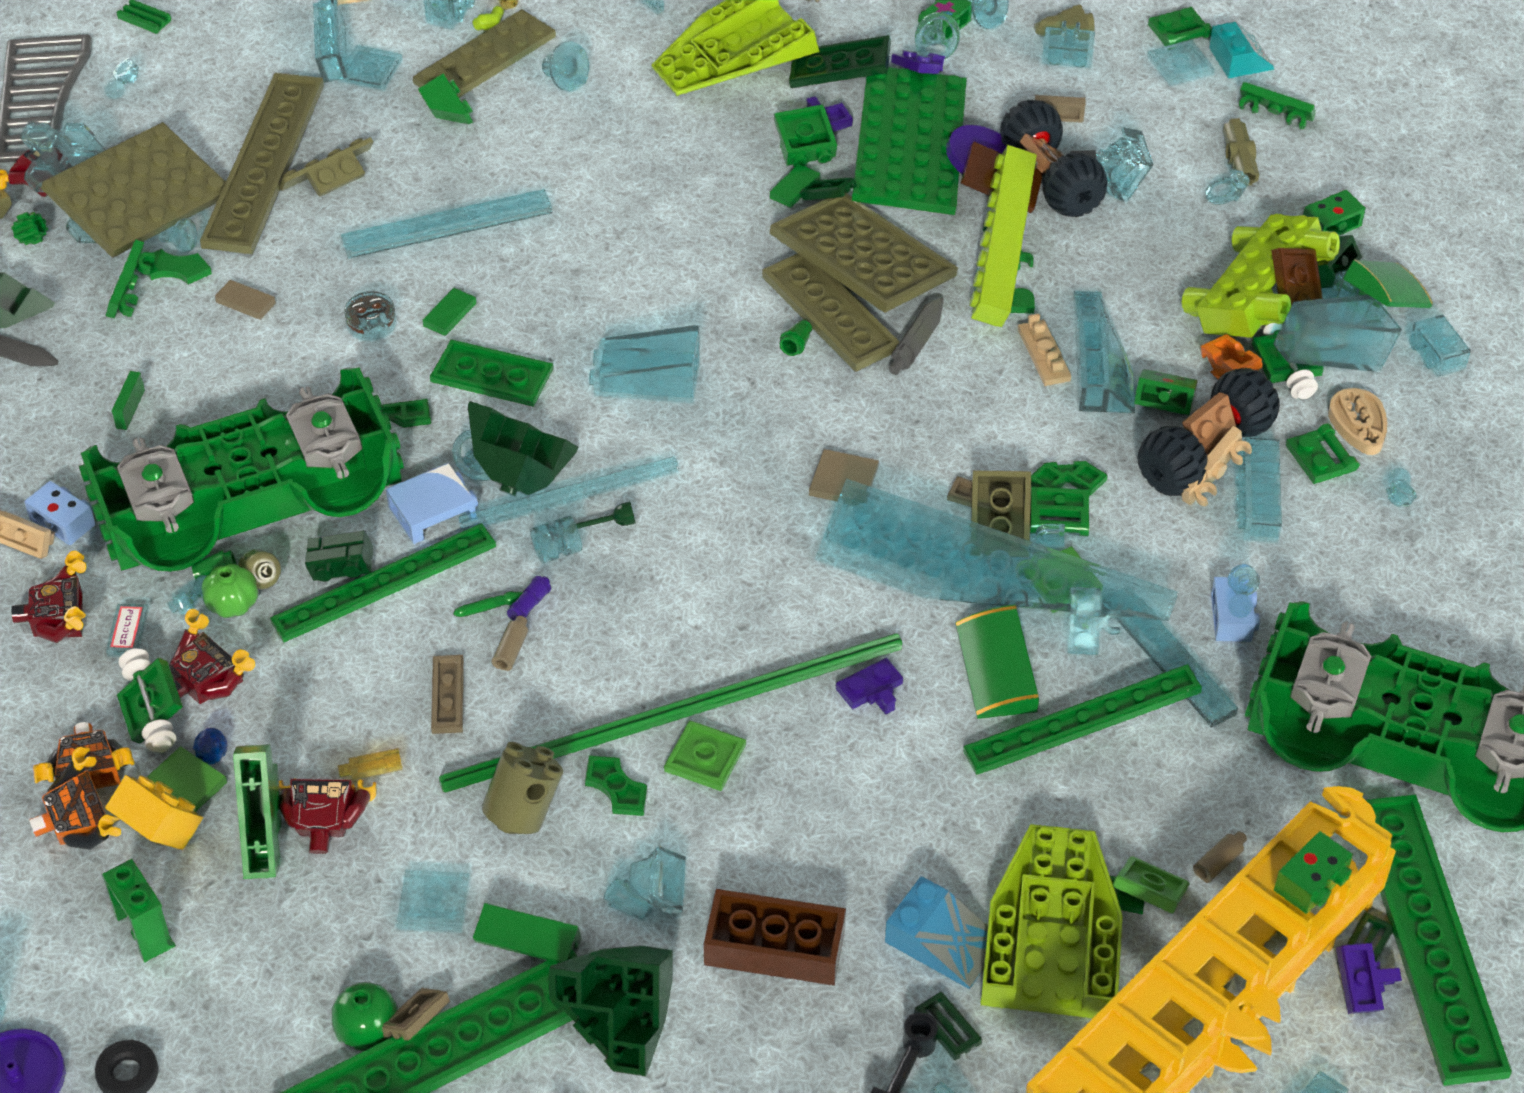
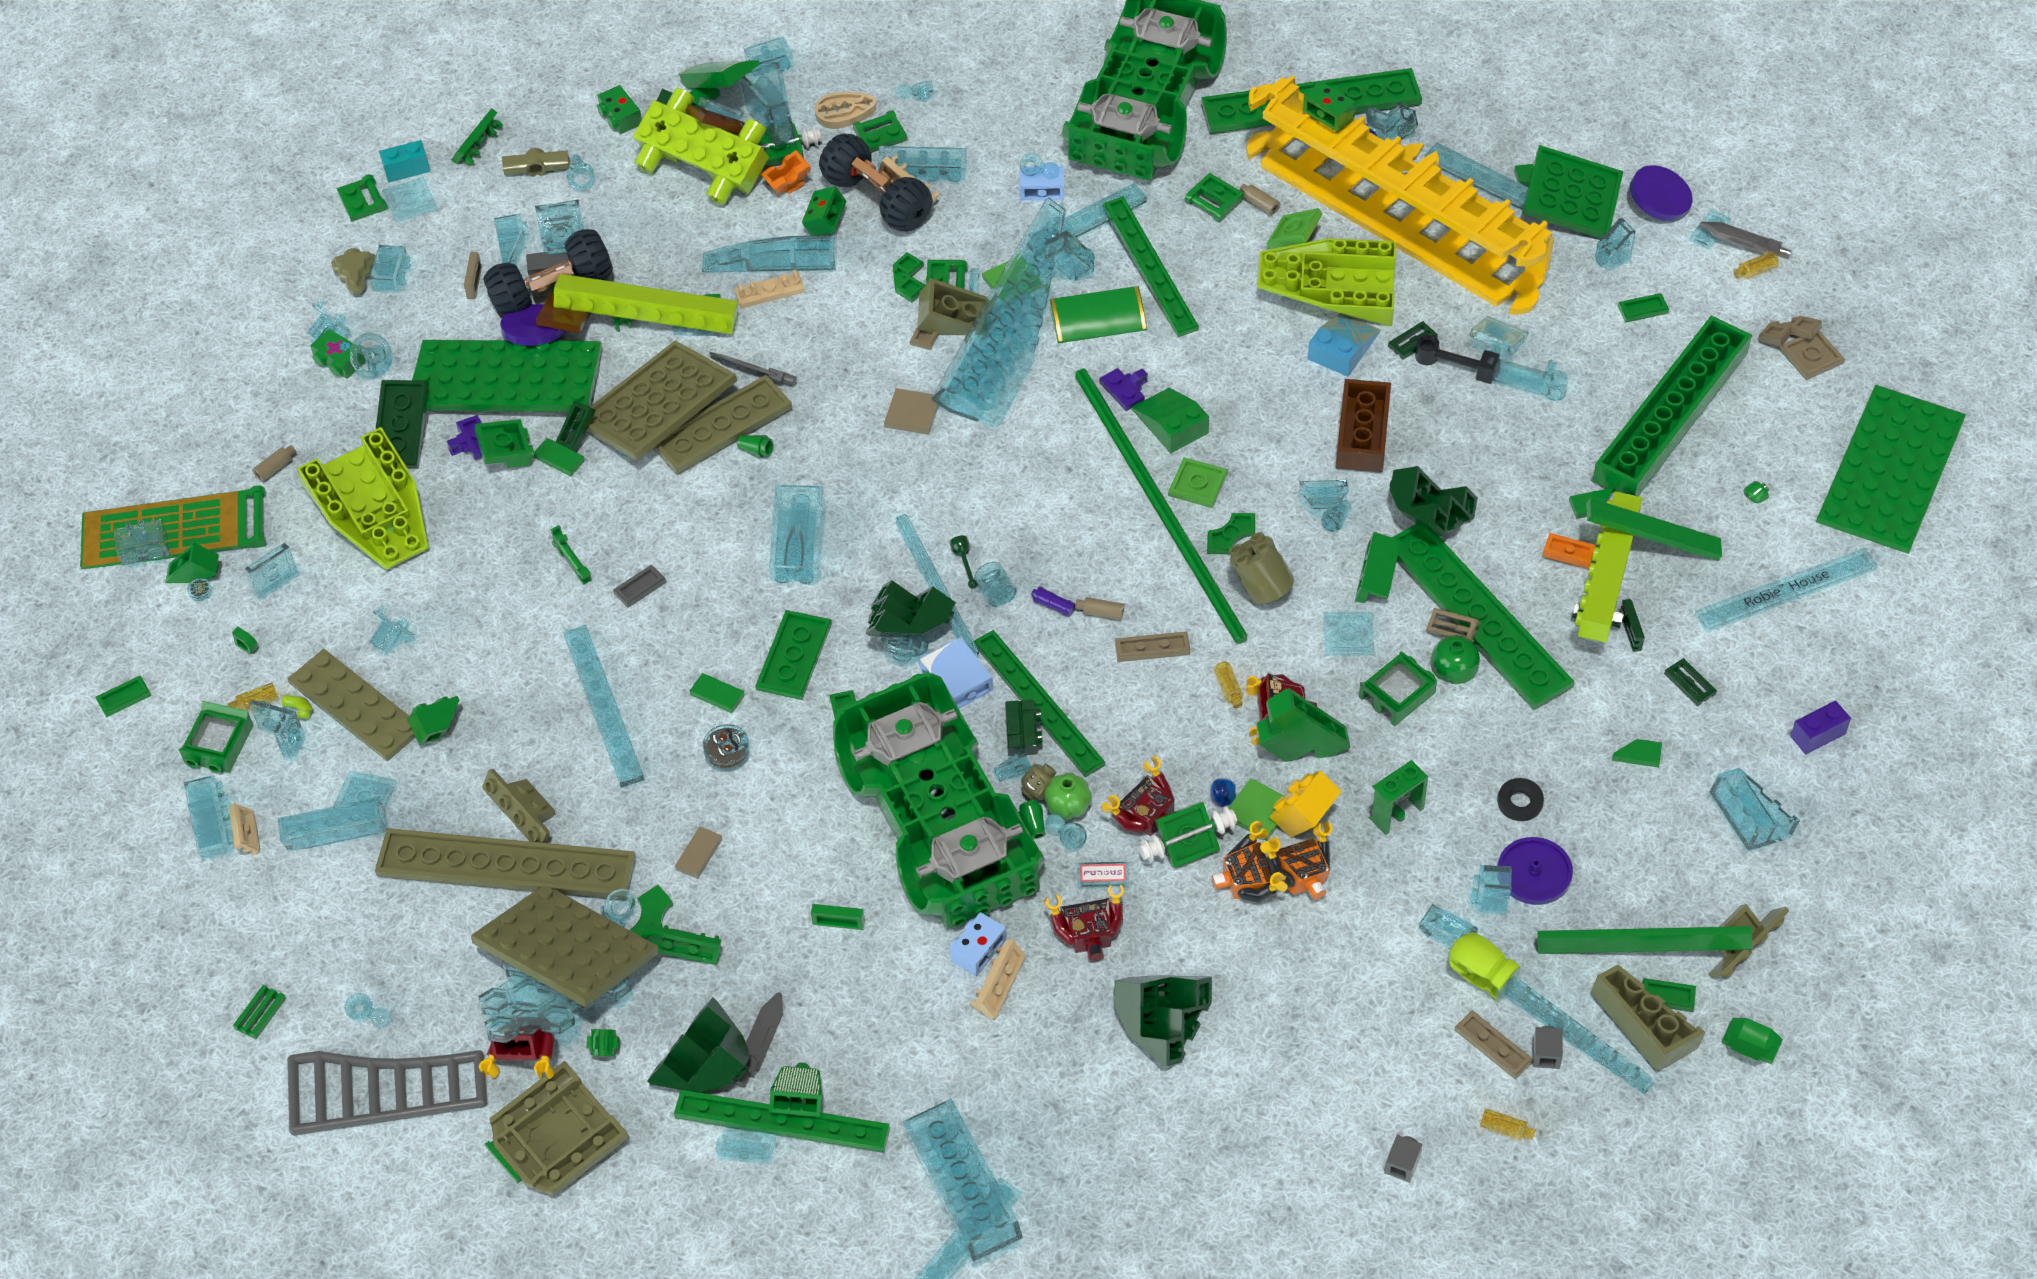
camera: 90 degrees left, 5 degrees up
(292, 553) = (1013, 767): none -> clear light blue cone
(326, 941) = (1399, 687): none -> green window
(487, 604) = (1051, 617): green piece -> none
(606, 251) = (639, 586): none -> dark grey tile
(663, 184) = (559, 540): none -> green bar
(811, 729) = (1173, 418): none -> green slope
(919, 63) = (408, 366): dark purple hinge -> none
(1099, 133) = (511, 237): none -> clear light blue slope
(1228, 808) = (1216, 191): none -> green plate
(1380, 1027) = (1398, 122): none -> clear light blue brick

